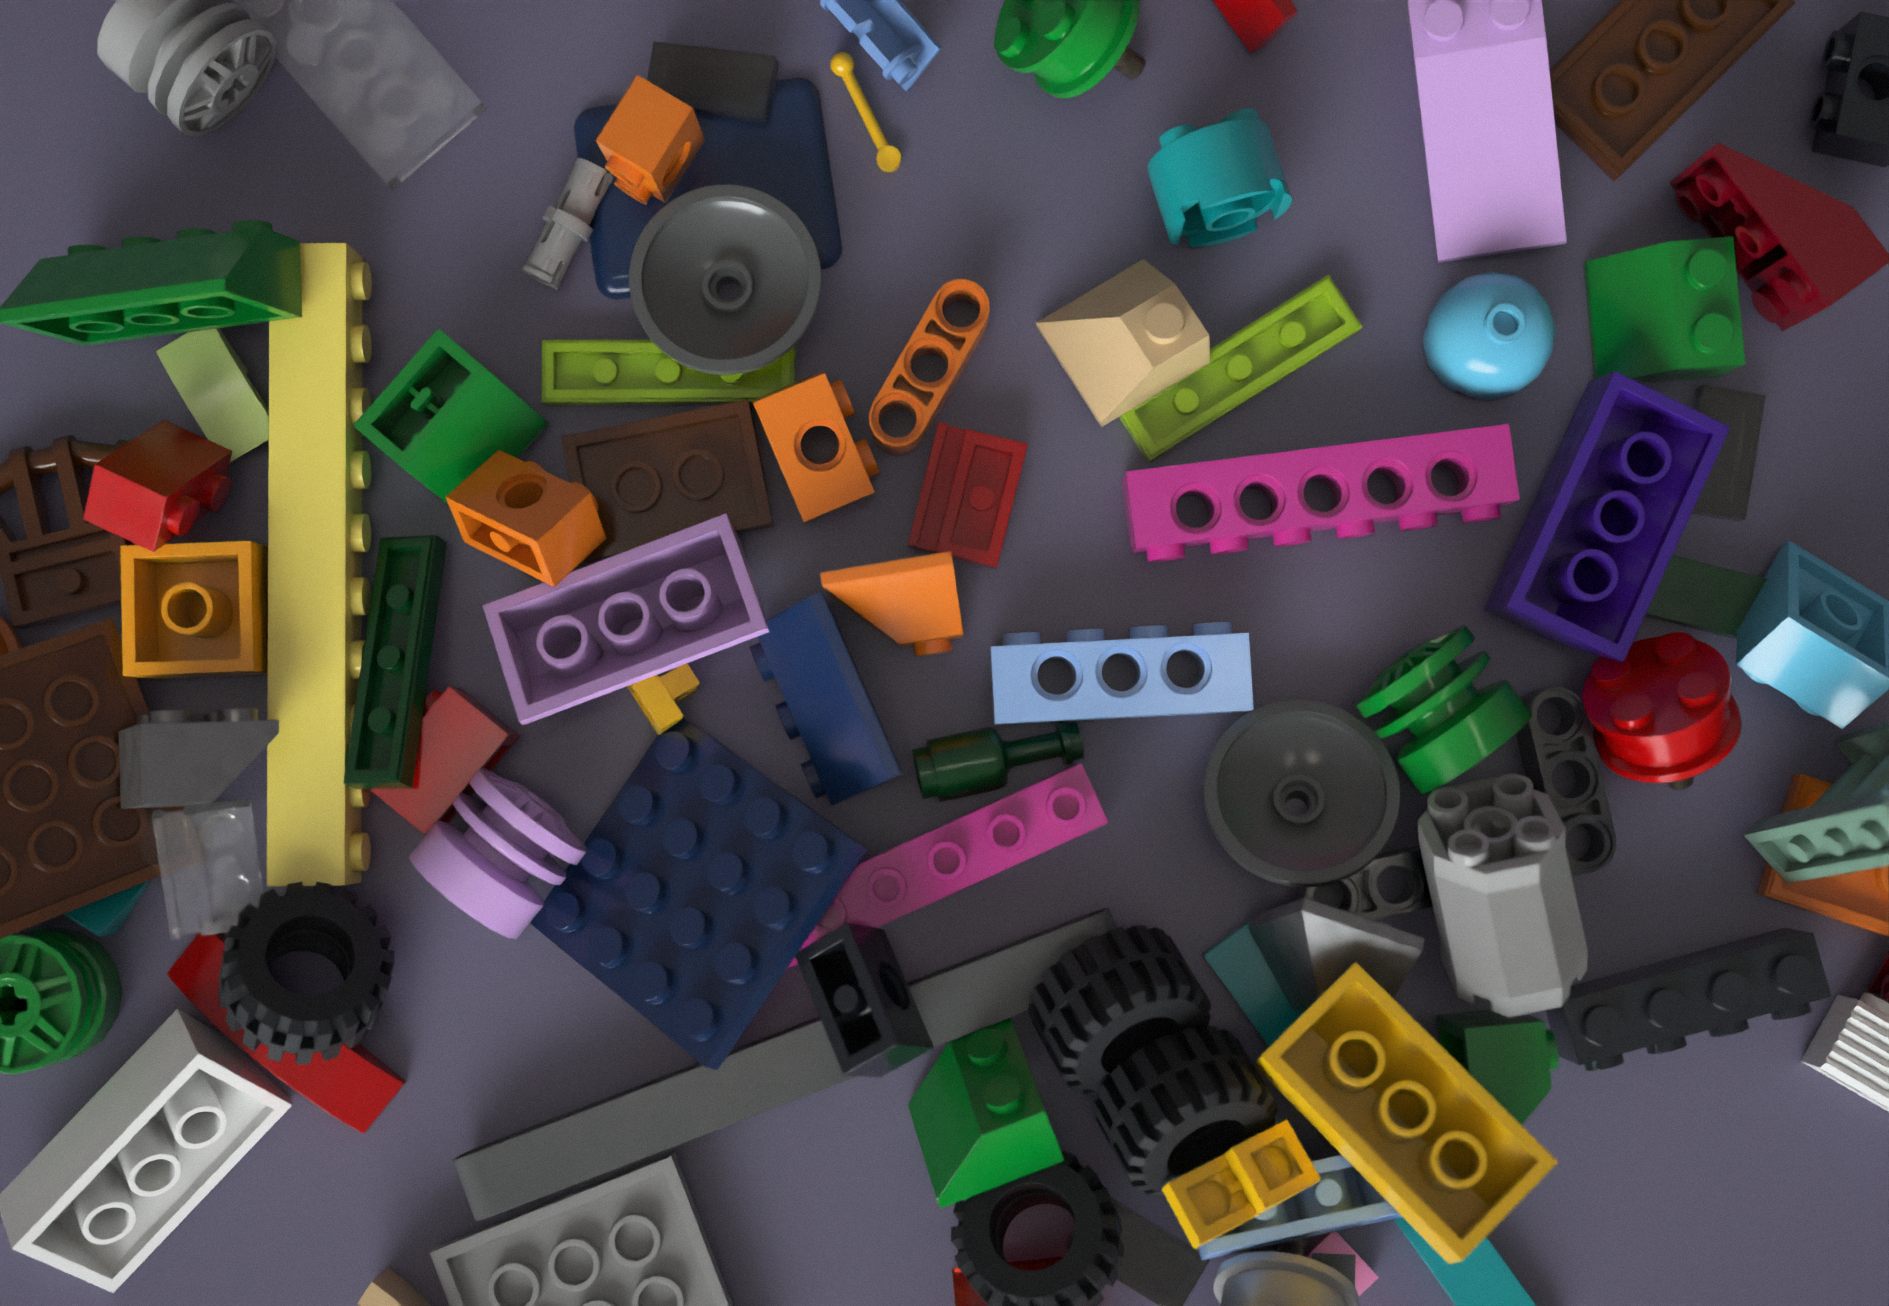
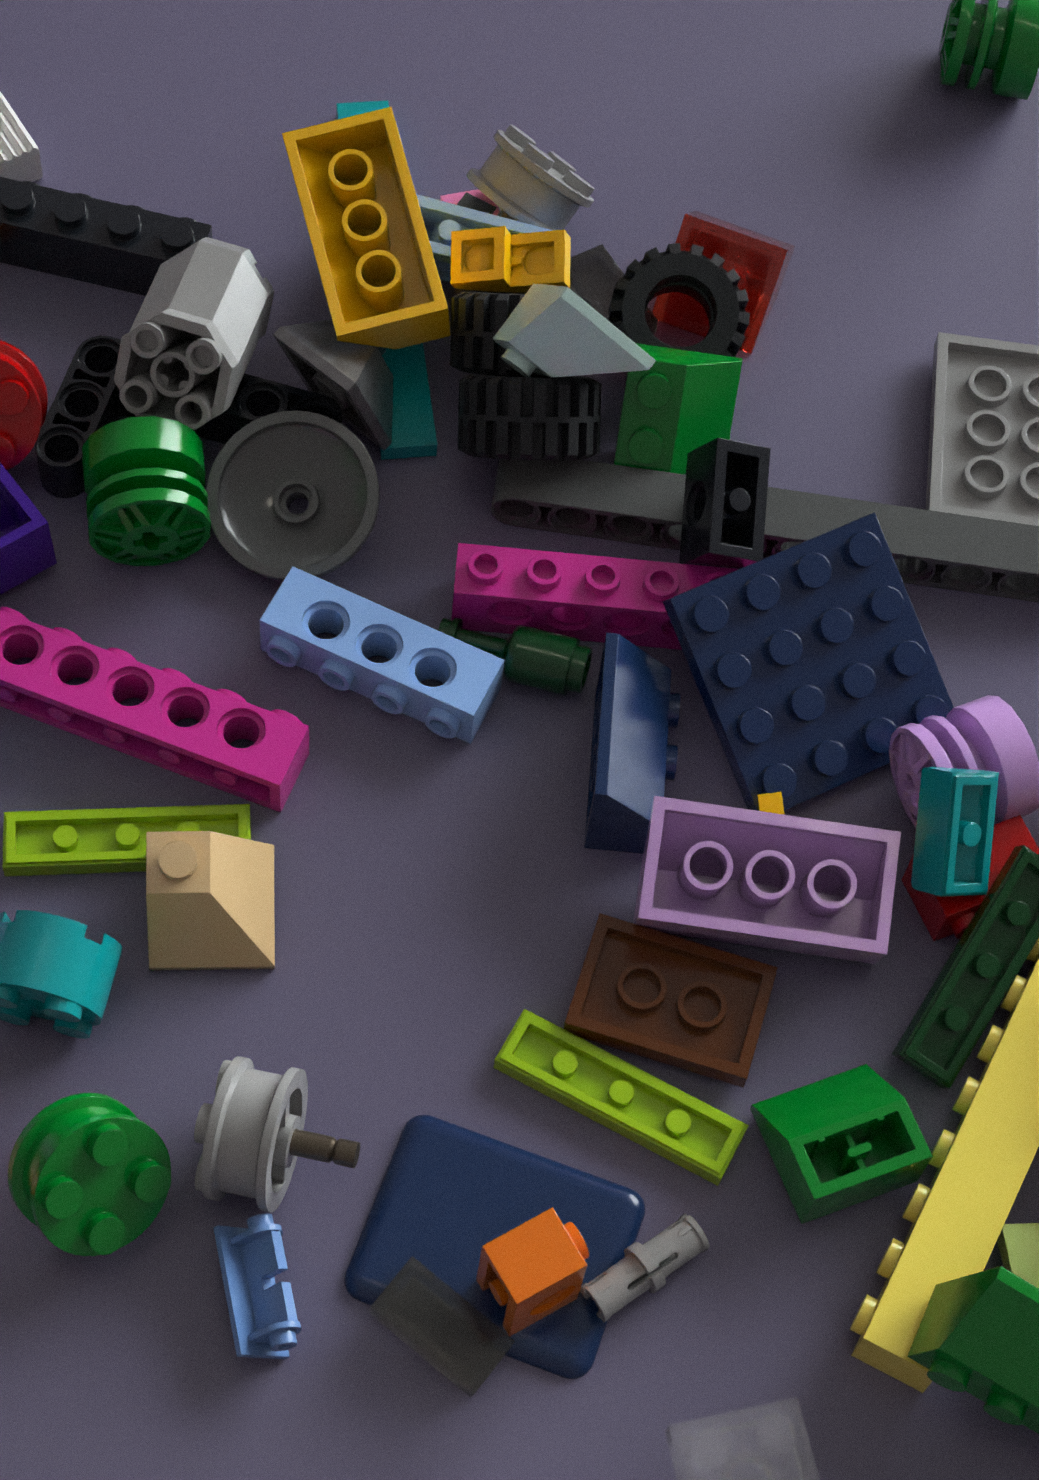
camera: 160 degrees left, 25 degrees down
(470, 755) = (954, 831): none -> teal slope
(527, 517) = (809, 974): orange brick -> none
(716, 240) = (540, 1082): dark grey dish -> none
(824, 483) = (528, 952): orange brick -> none
(888, 156) = (317, 1179): yellow hinge -> none
(903, 600) = (526, 798): orange slope -> none
(935, 337) = (378, 993): orange beam -> none
(947, 134) = (258, 1133): none -> light grey wheel
(967, 495) = (419, 855): red plate -> none
(1112, 1076) = (564, 337): none -> light aqua slope
(1503, 1055) = (283, 250): green slope -> none

